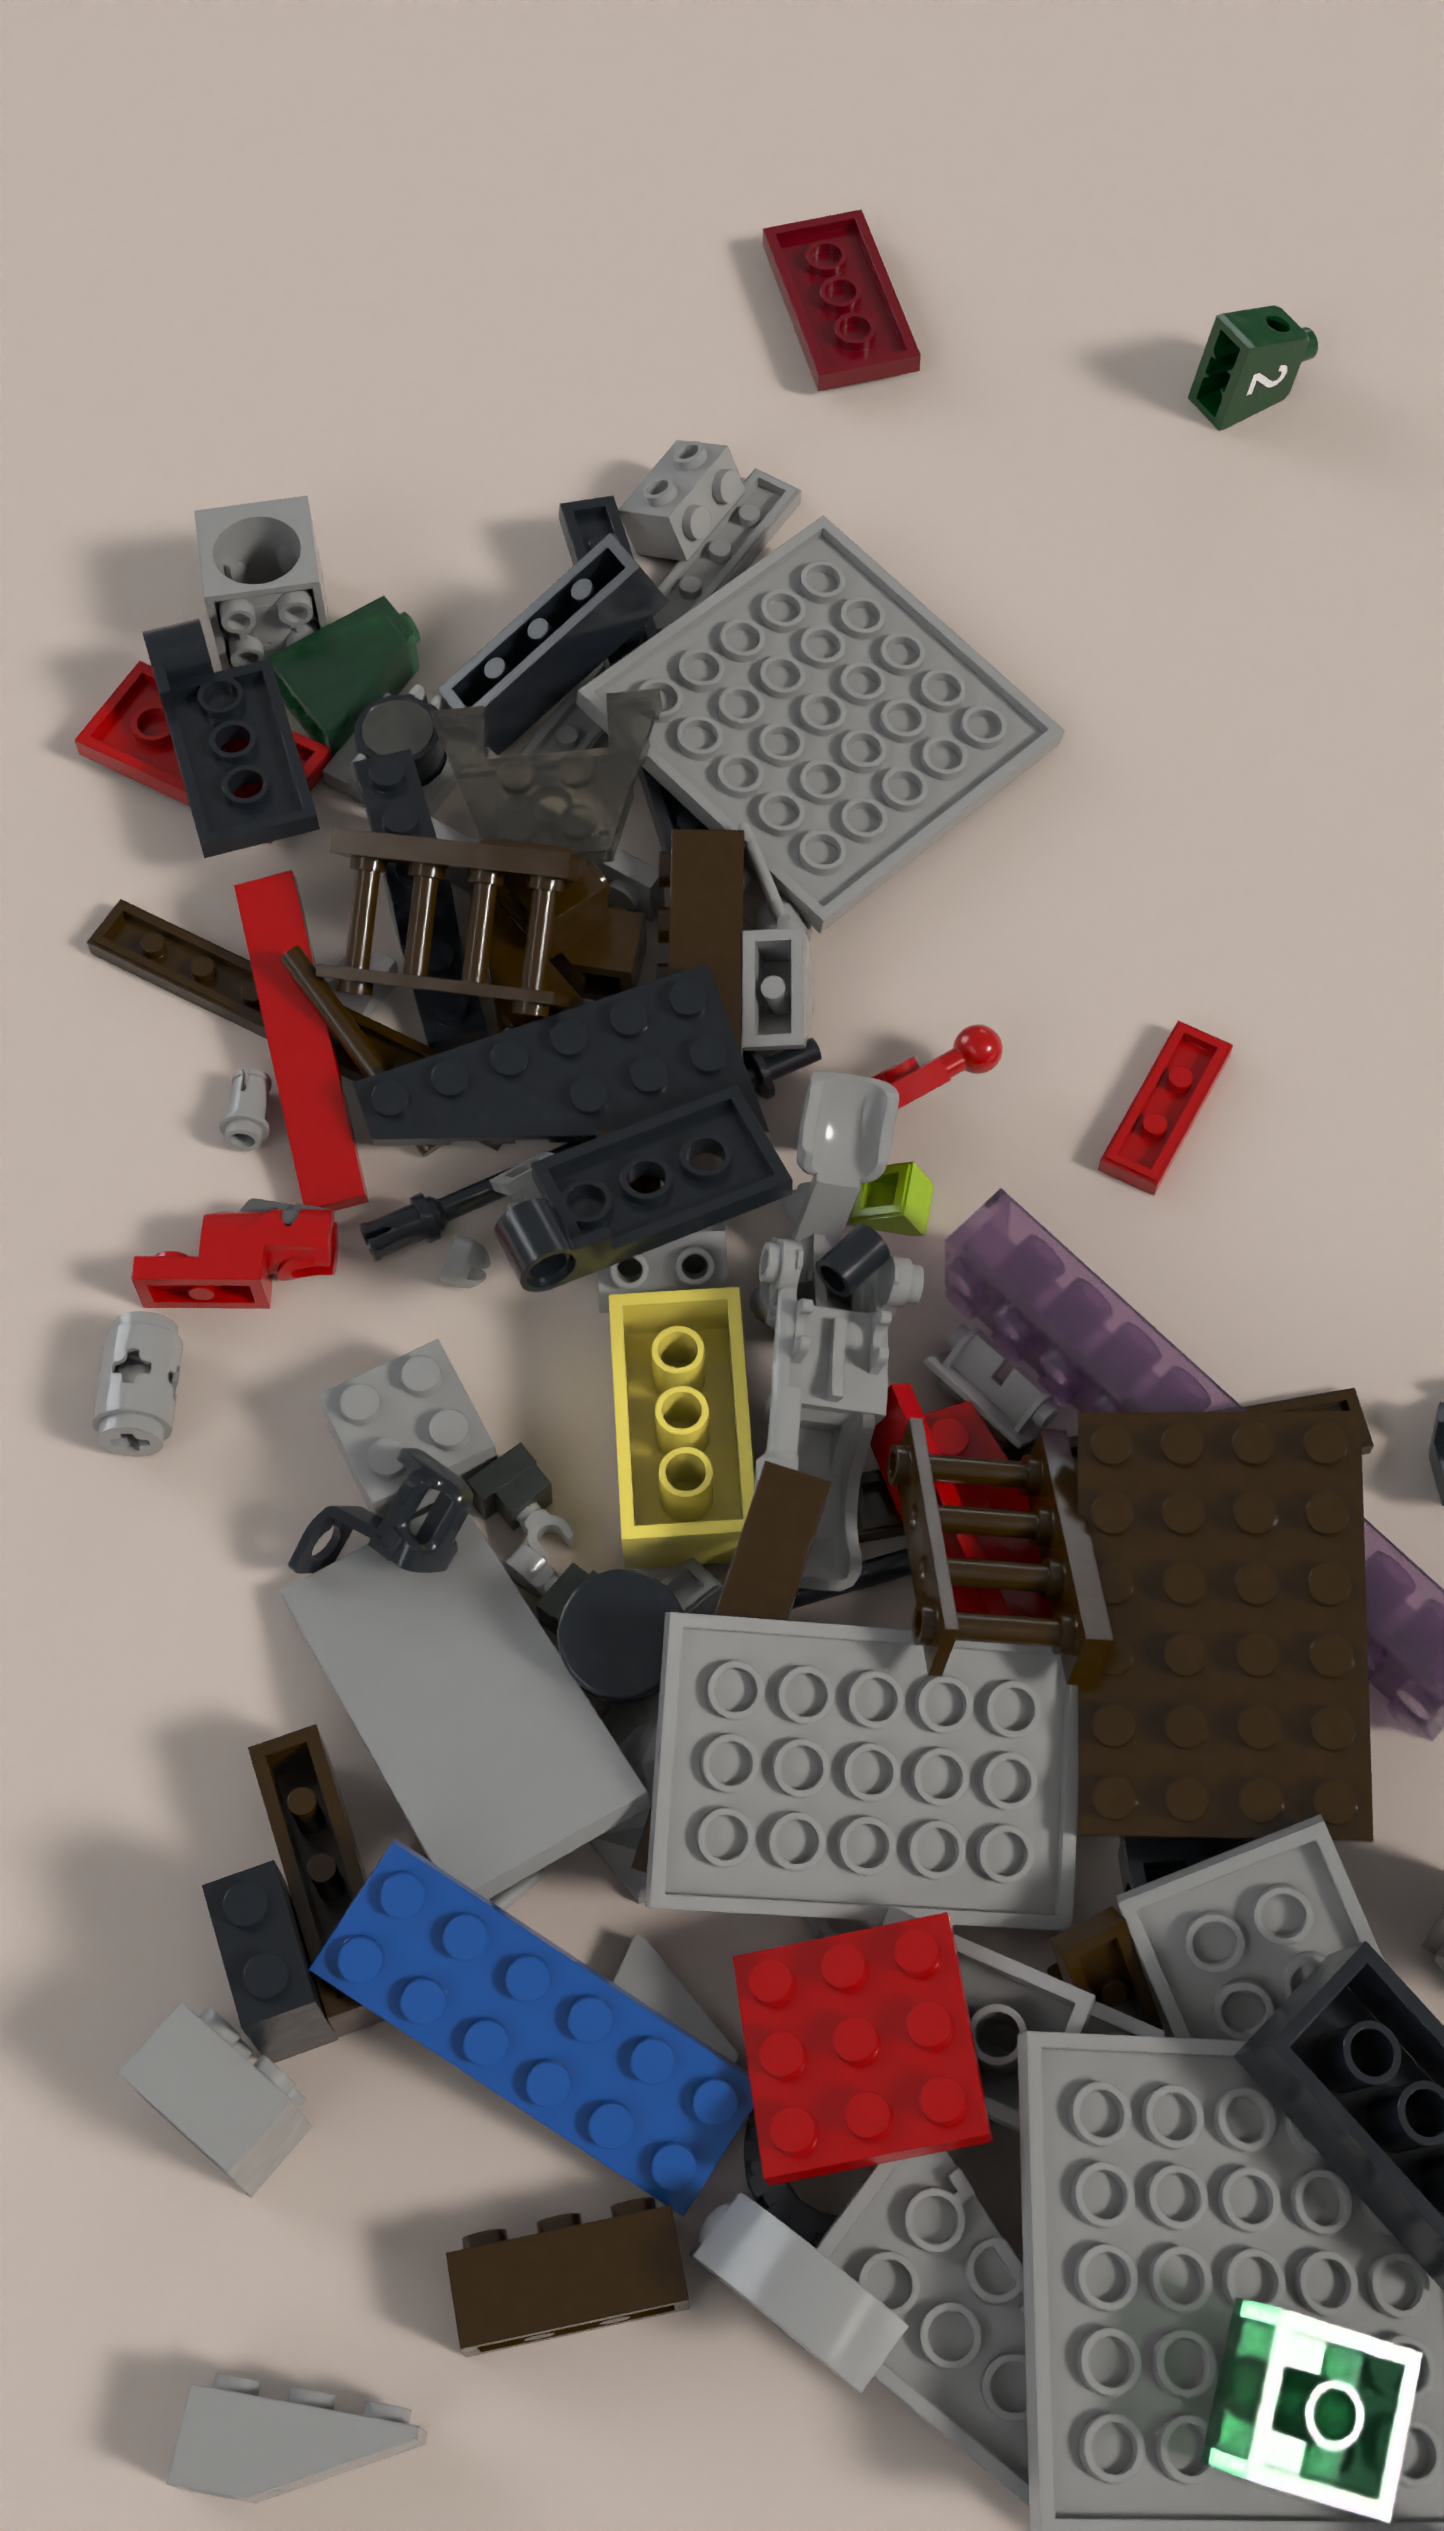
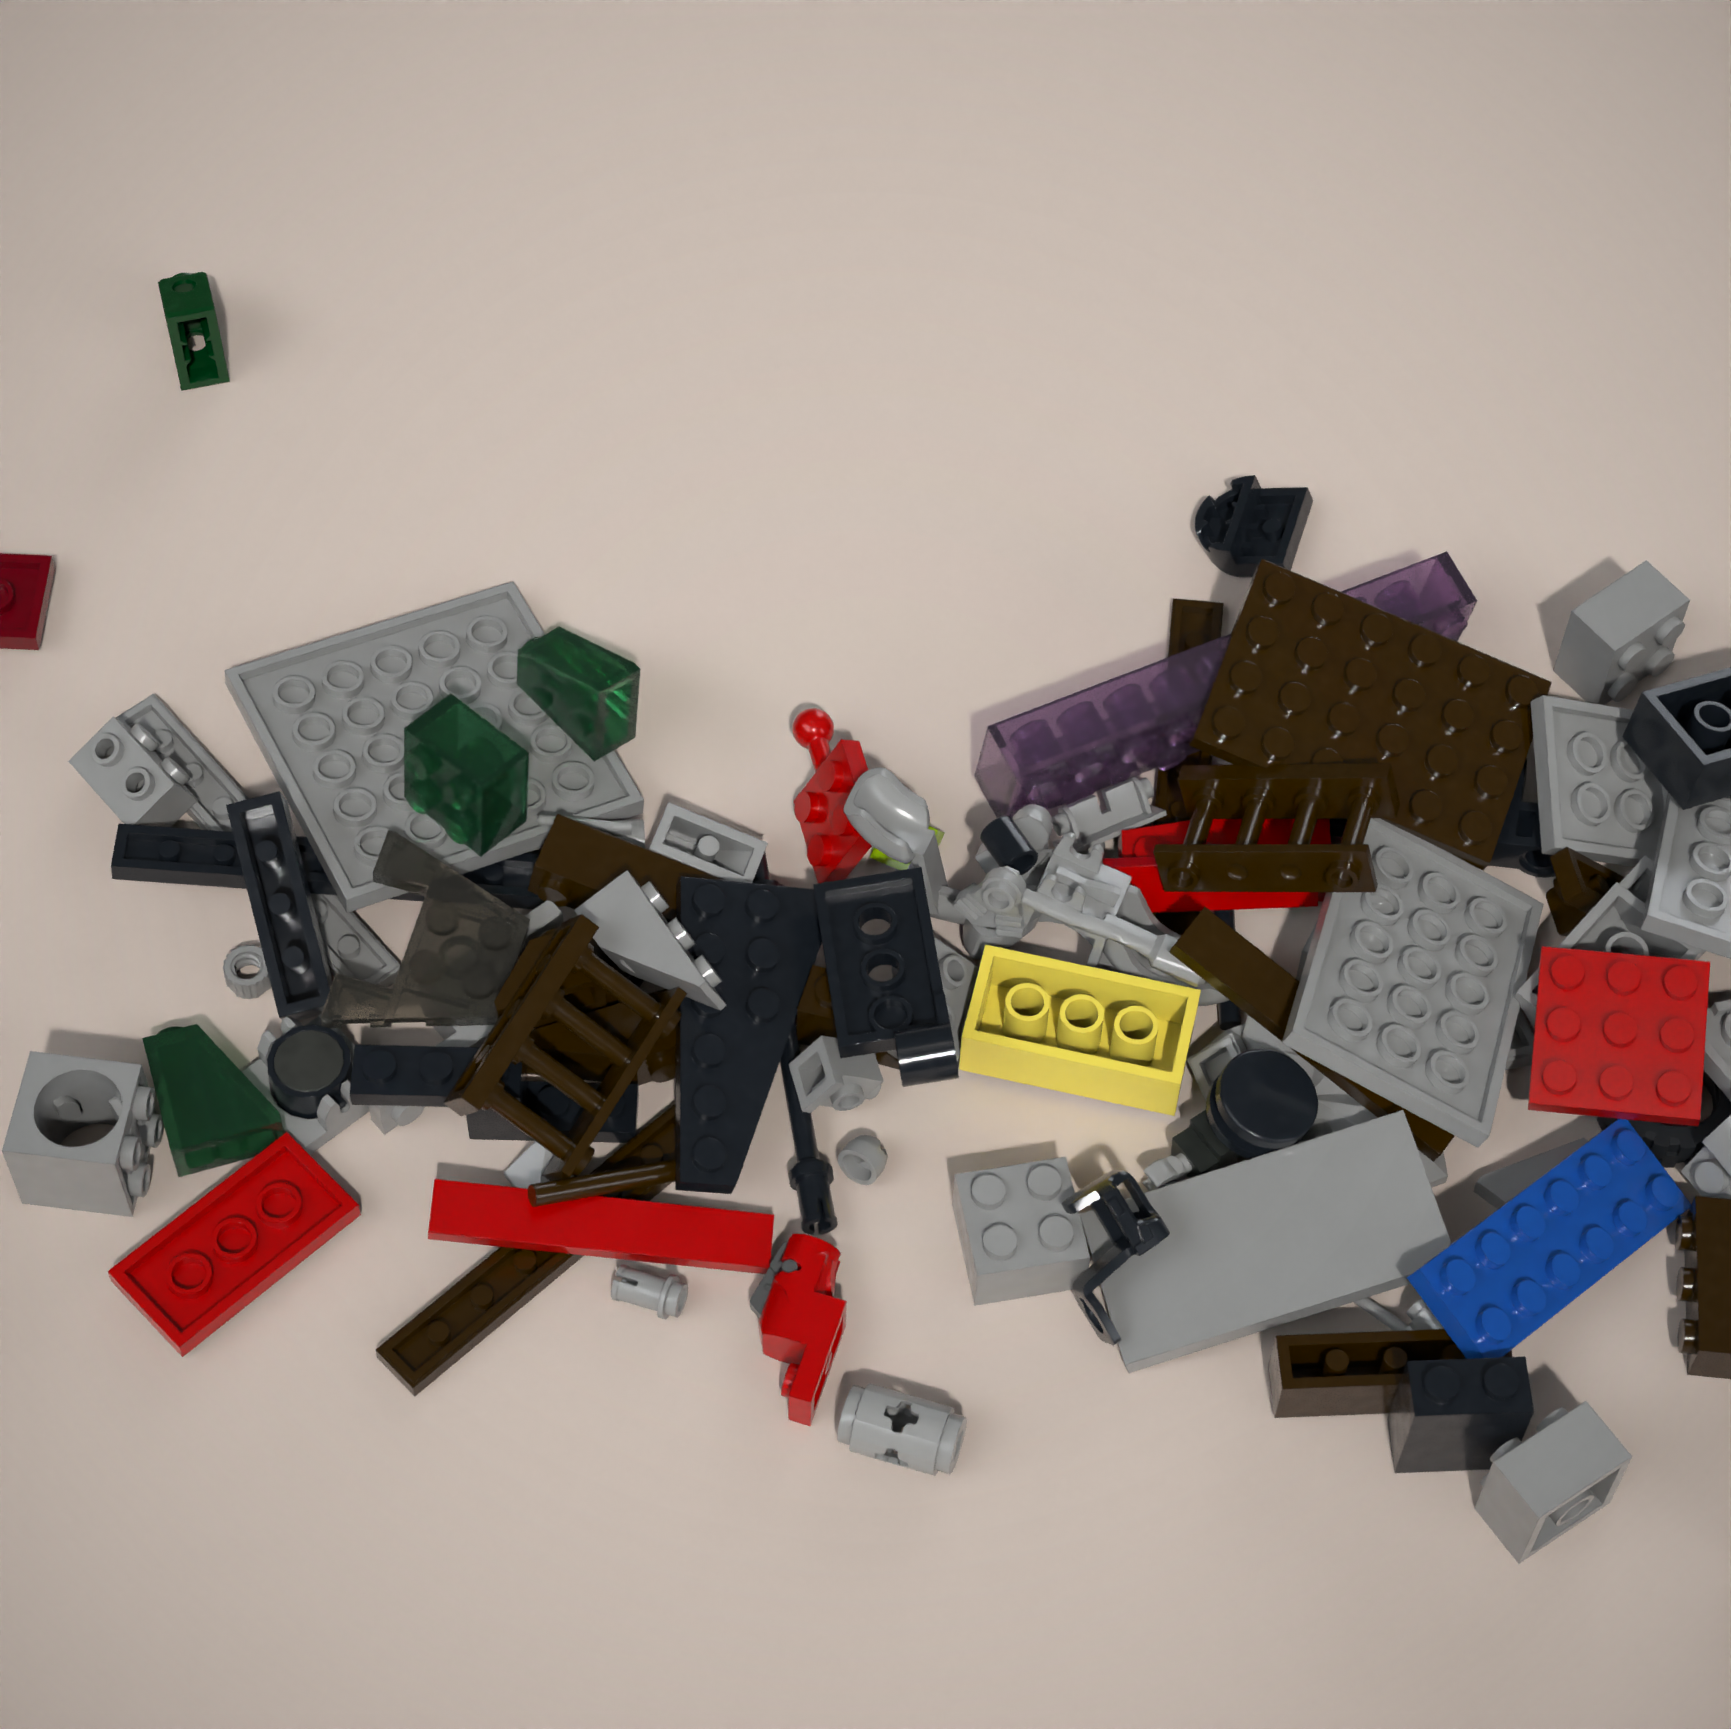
camera: 75 degrees left, 5 degrees down
(221, 706) = (214, 1193): black hinge -> none
(520, 1494) = (1092, 1158): pearl dark grey piece -> none
(603, 952) = (647, 944): none -> light grey slope
(742, 725) = (465, 775): none -> clear green brick
(918, 810) = (581, 689): none -> clear green slope
(1165, 1108) = (891, 636): red tile -> none

